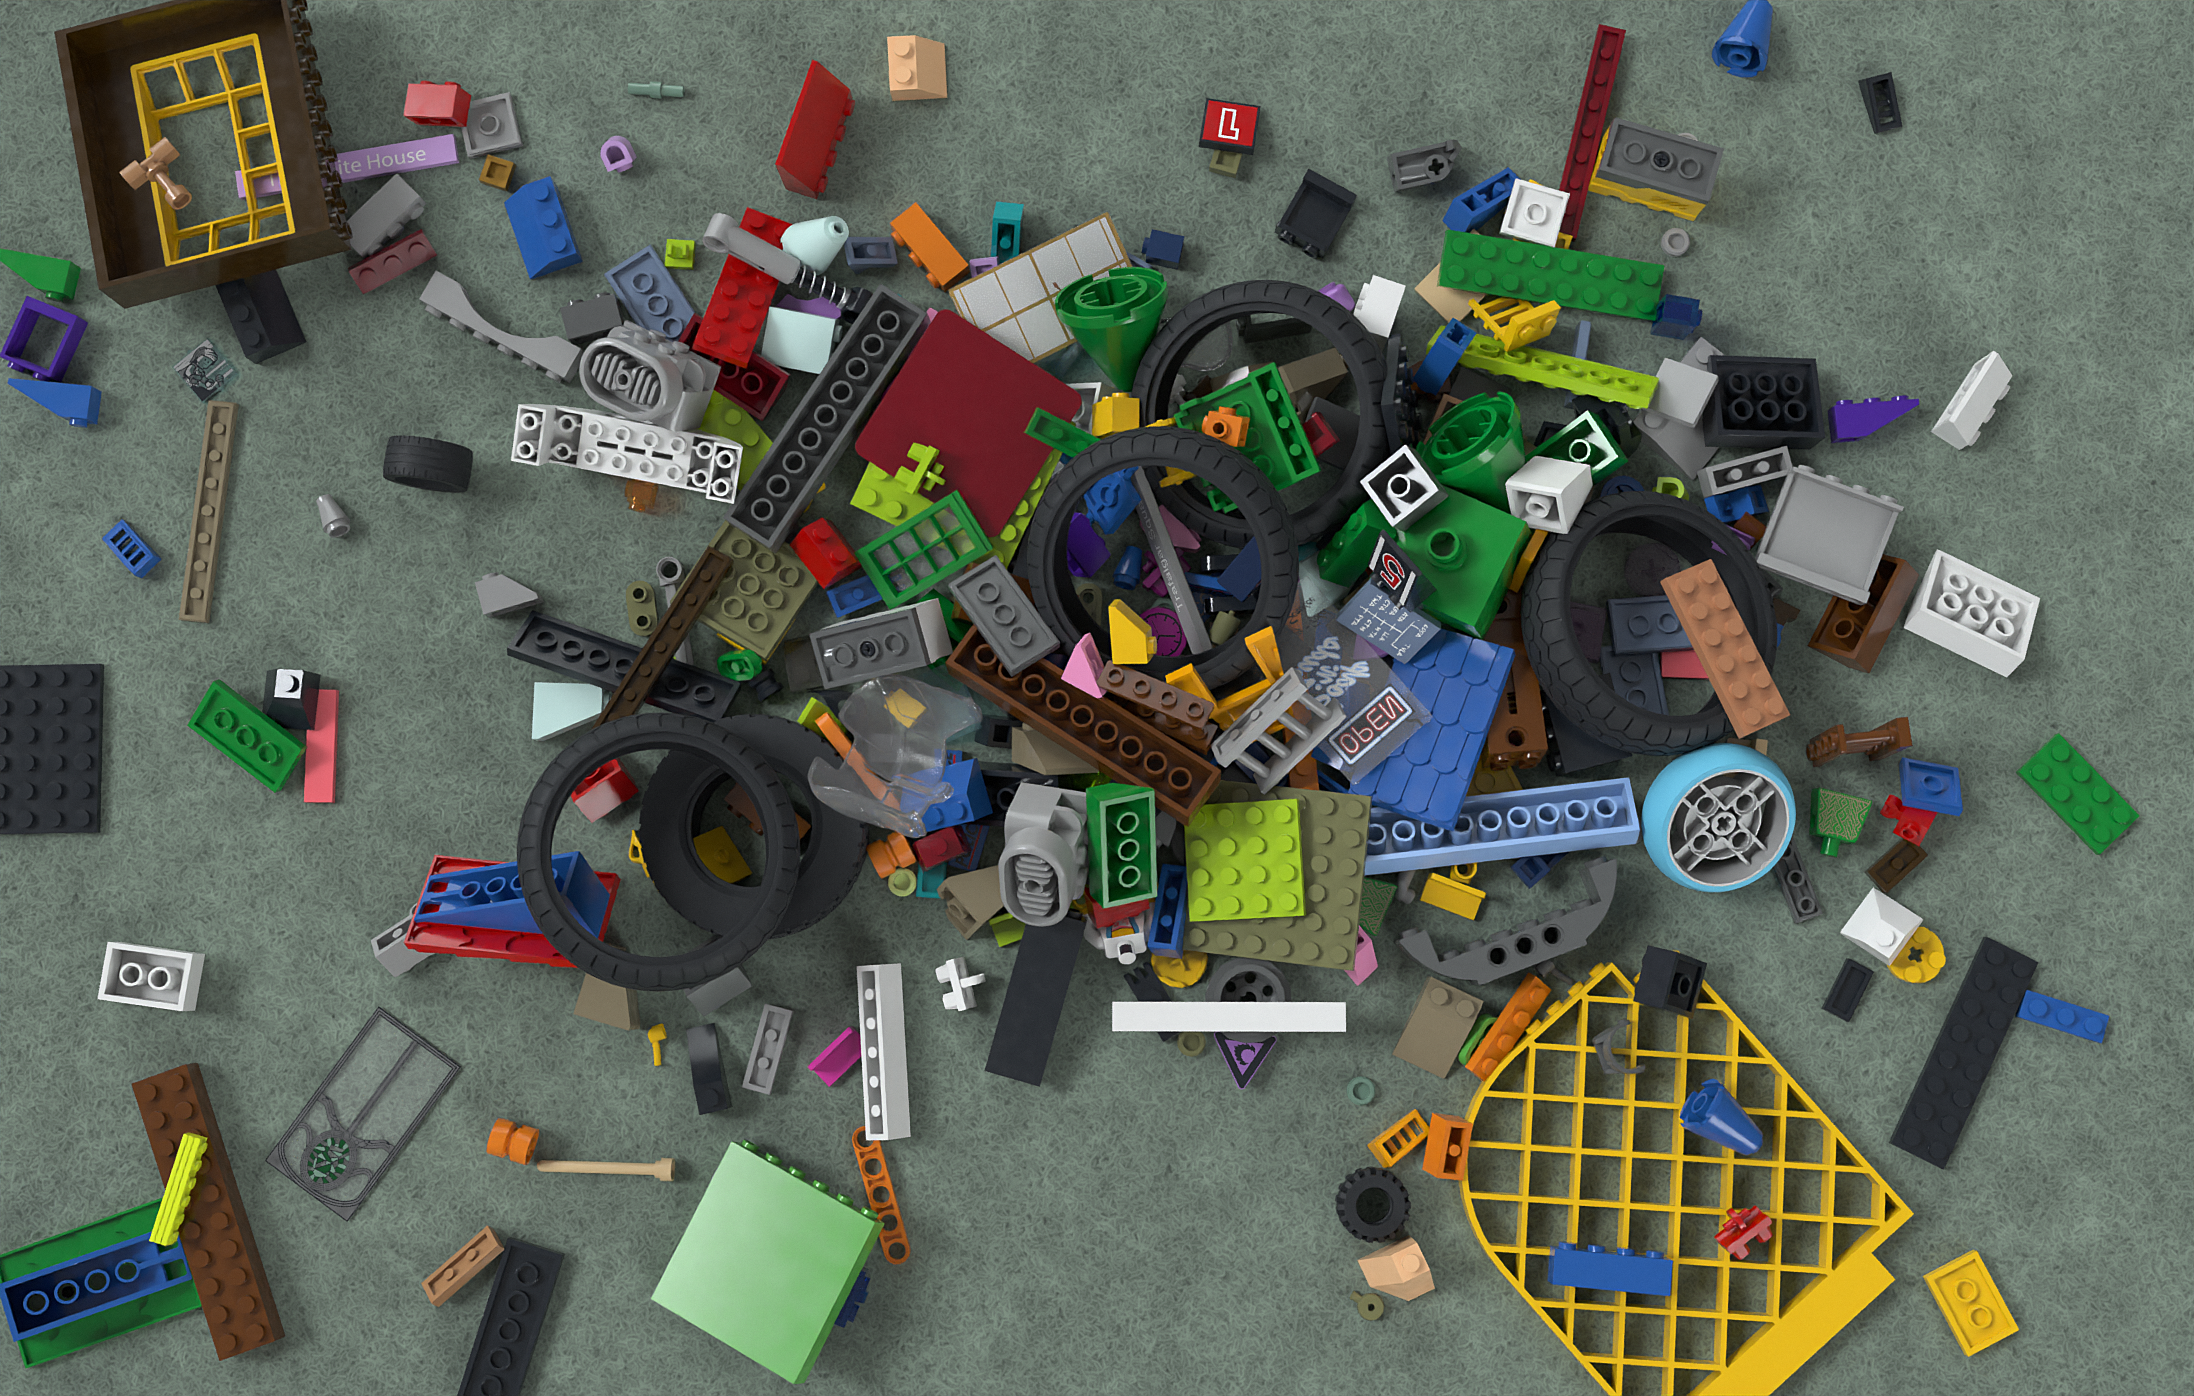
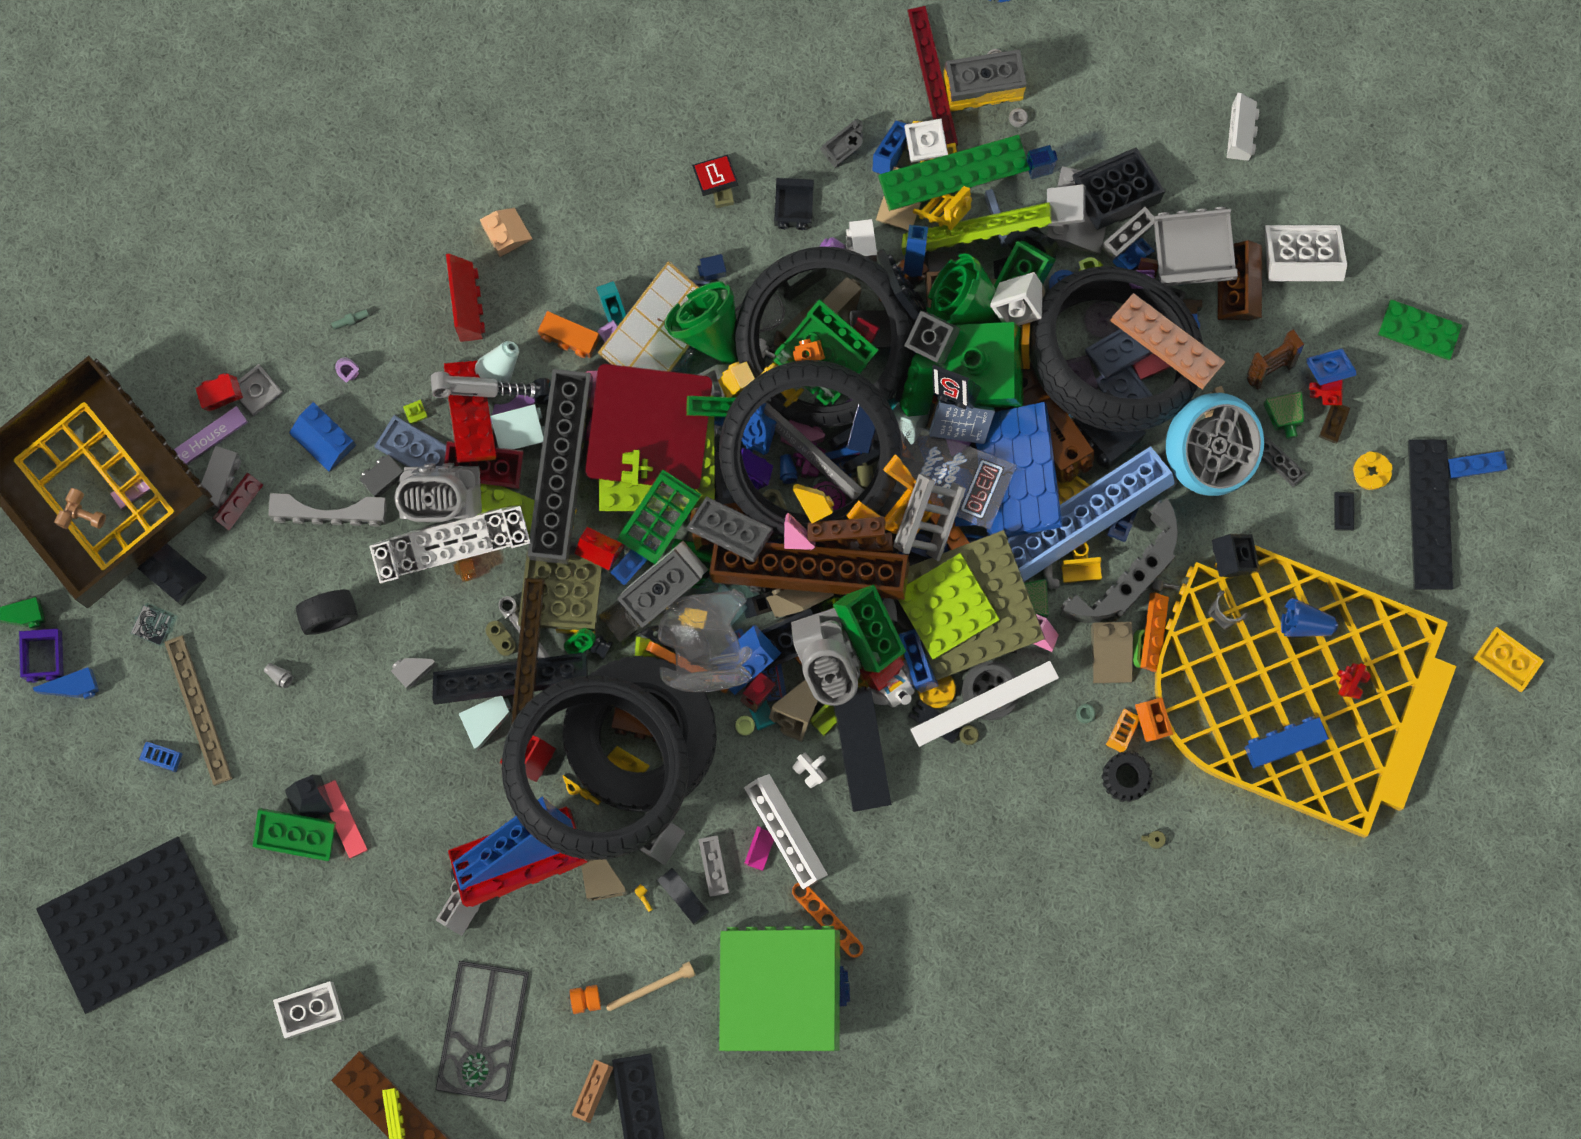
camera: 30 degrees left, 5 degrees down
(497, 173) = (276, 416): pearl gold plate -> none
(869, 252) = (534, 354): sand blue slope -> none
(890, 854) = (730, 710): orange wheel -> none
(1243, 1058) = (1005, 728): black piece -> none
(1398, 1269) = (1163, 807): light nougat slope -> none
(1856, 421) = (1179, 172): dark purple slope -> none
(1881, 926) = (1344, 463): white slope -> none

